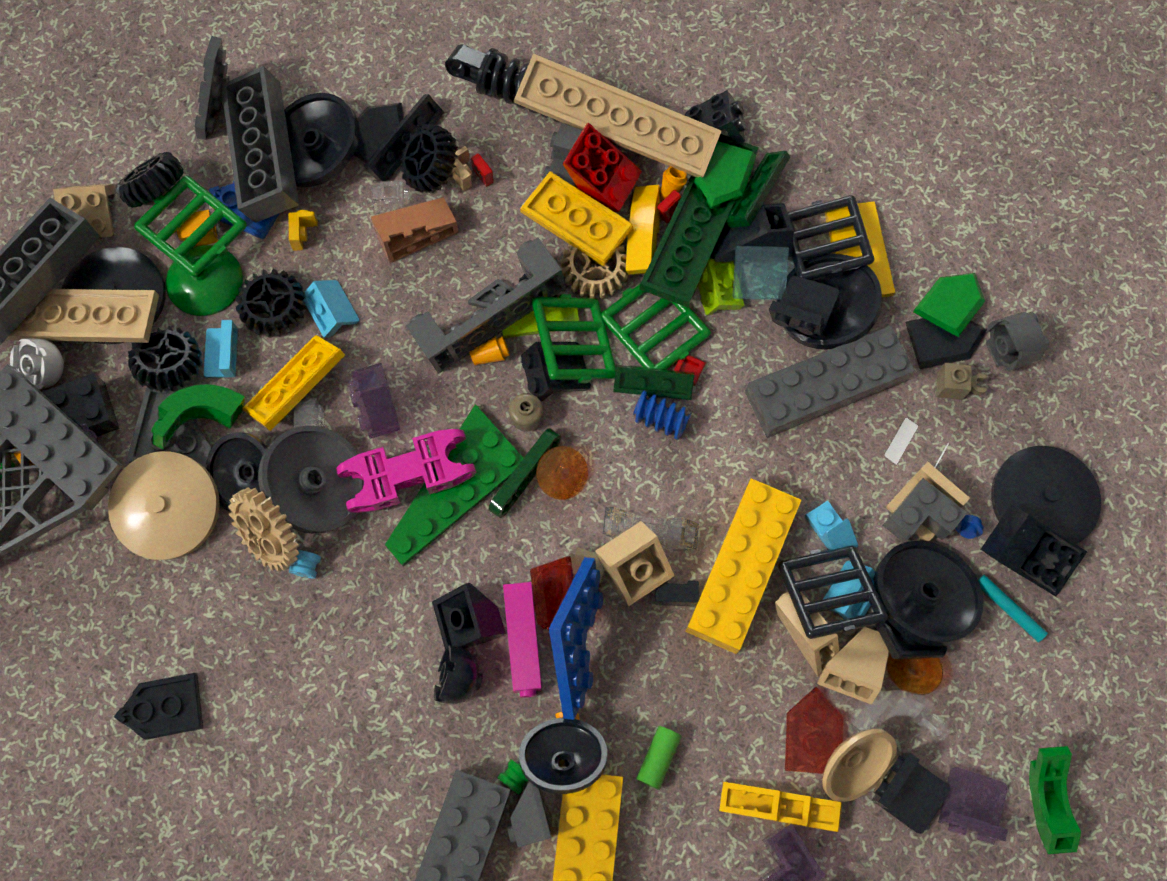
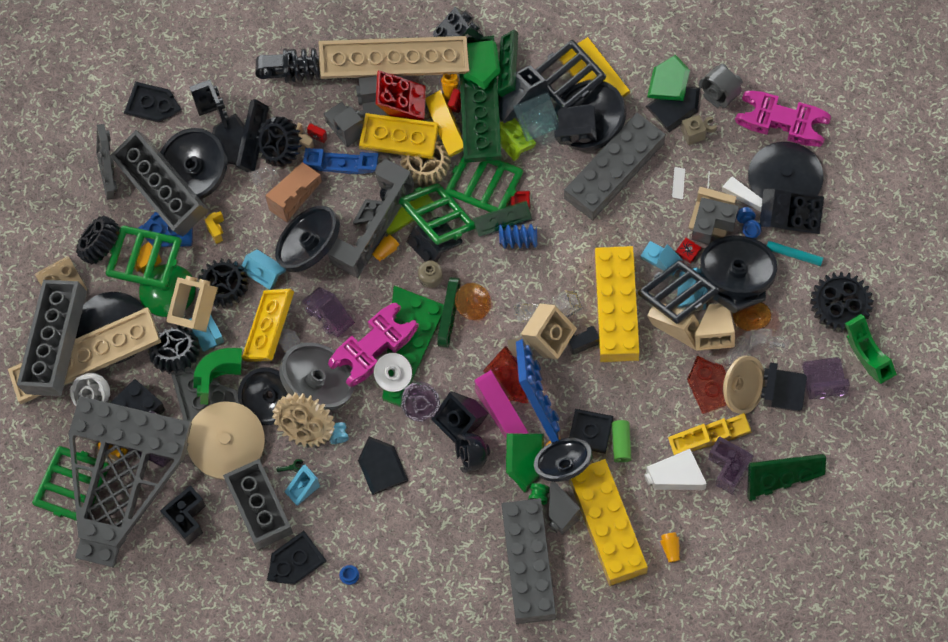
camera: 20 degrees left, 5 degrees down
(53, 575) = (180, 514): none -> black brick
(153, 611) = (258, 504): none -> dark grey brick
(219, 762) = (349, 575): none -> blue plate
(222, 320) = (203, 304): none -> tan window
(225, 579) = (290, 467): none -> dark green hand
(225, 612) = (302, 485): none -> medium azure slope
(310, 46) = (151, 103): none -> black tile
(337, 634) = (381, 466): none -> black tile
(371, 72) = (207, 100): none -> black bracket
(396, 296) = (307, 238): none -> black dish
(412, 533) = (400, 367): none -> white dish
(425, 574) = (420, 401): none -> clear purple cylinder
(490, 218) = (340, 163): none -> blue slope
(516, 714) = (520, 457): none -> green tile
(521, 171) = (345, 123): none -> dark grey brick
(626, 720) = (592, 428): none -> black tile
(710, 840) = (676, 473): none -> white slope
(871, 536) = (688, 250): none -> red tile
(969, 548) = (751, 228): none -> blue plate
(974, 486) = (742, 193): none -> white piece
(1048, 682) = (836, 287): none -> black gear
(1079, 419) = (783, 118): none -> dark pink piece

